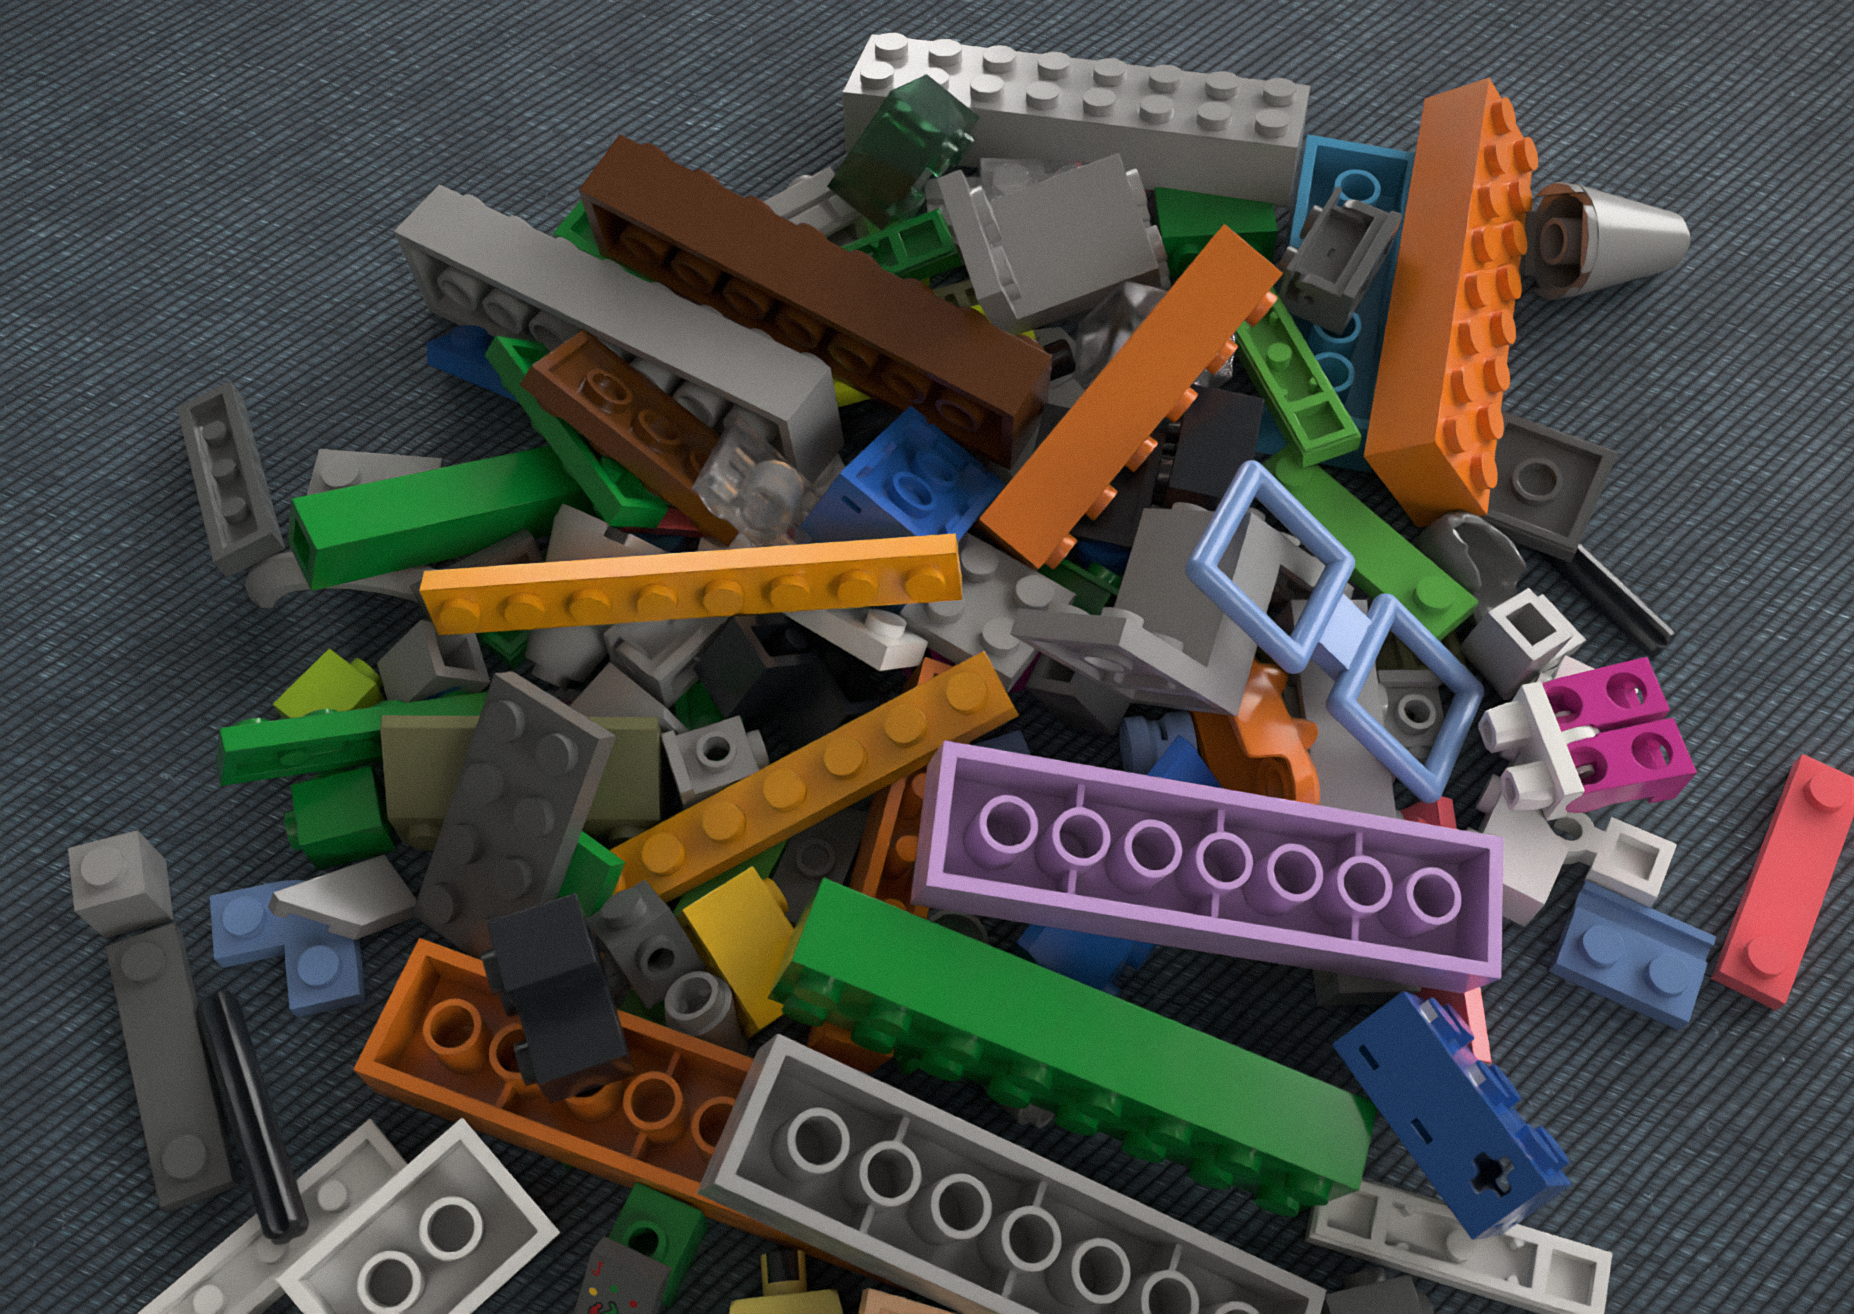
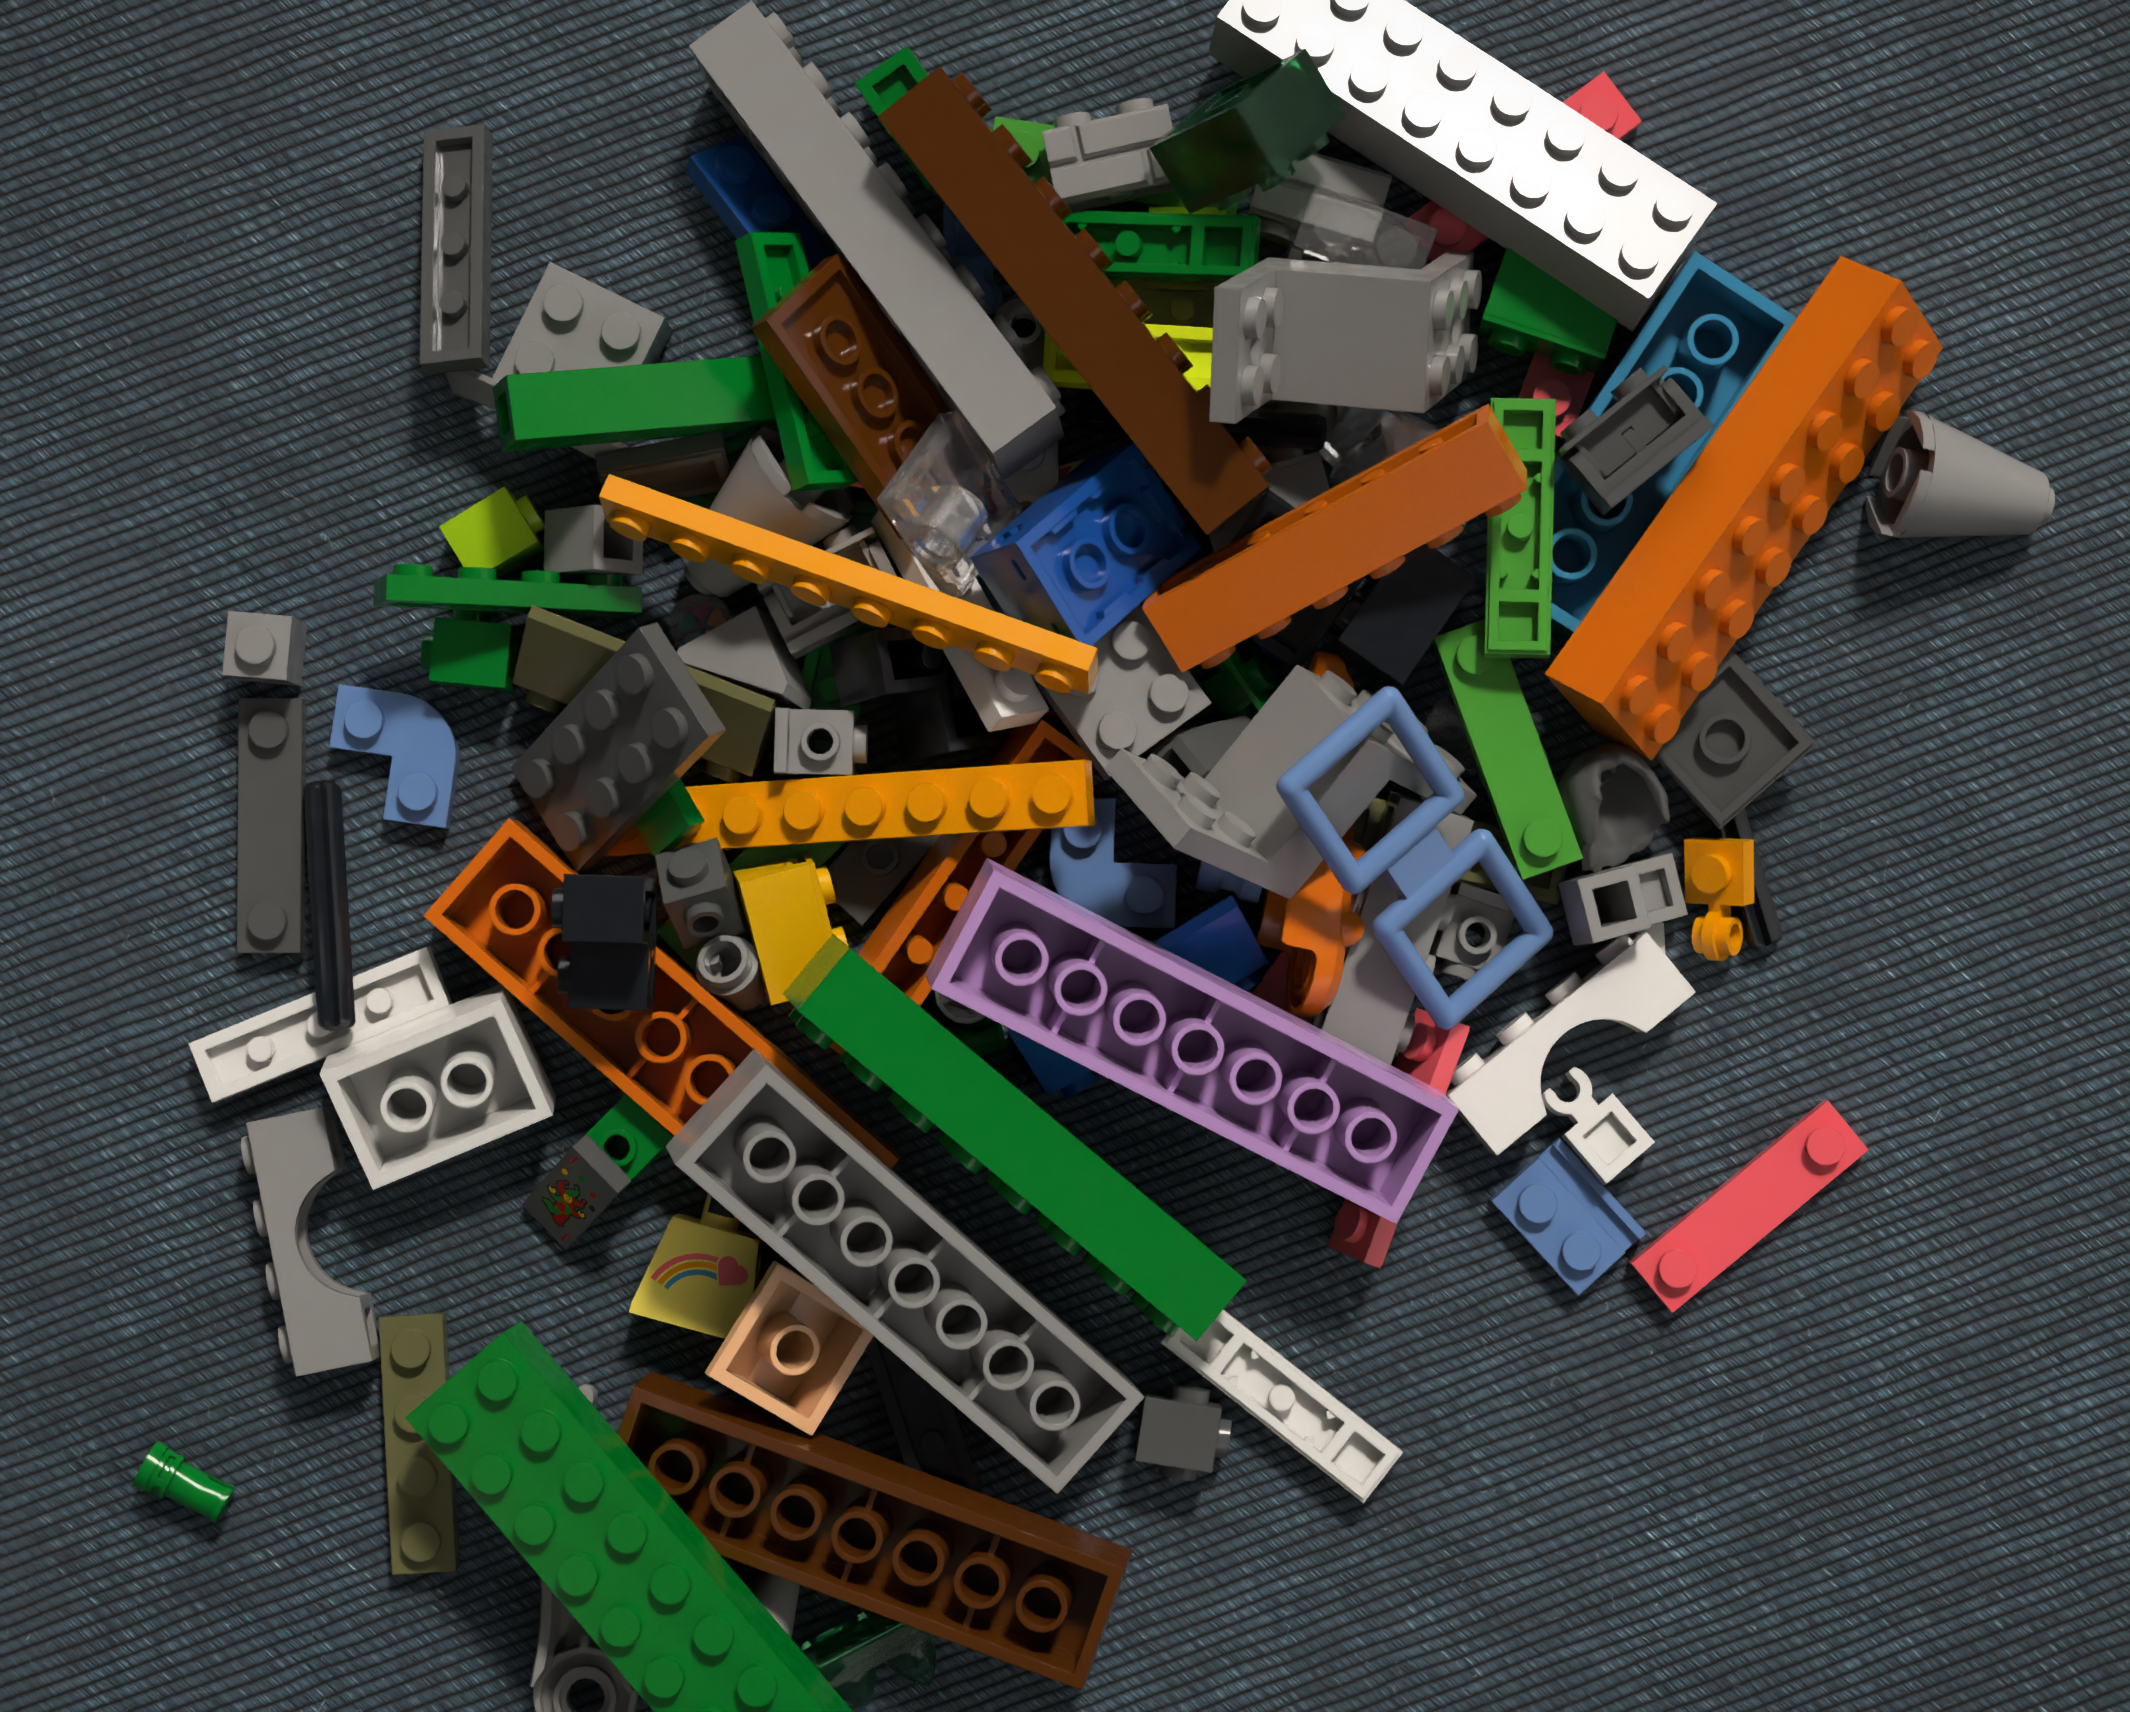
camera: 25 degrees right, 25 degrees up
(350, 900) = (461, 740): light grey tile -> none
(1454, 1113) = (1309, 1308): blue piece -> none
(1589, 742) = (1585, 1031): dark pink hips -> none
(1593, 598) = (1722, 876): none -> light orange plate

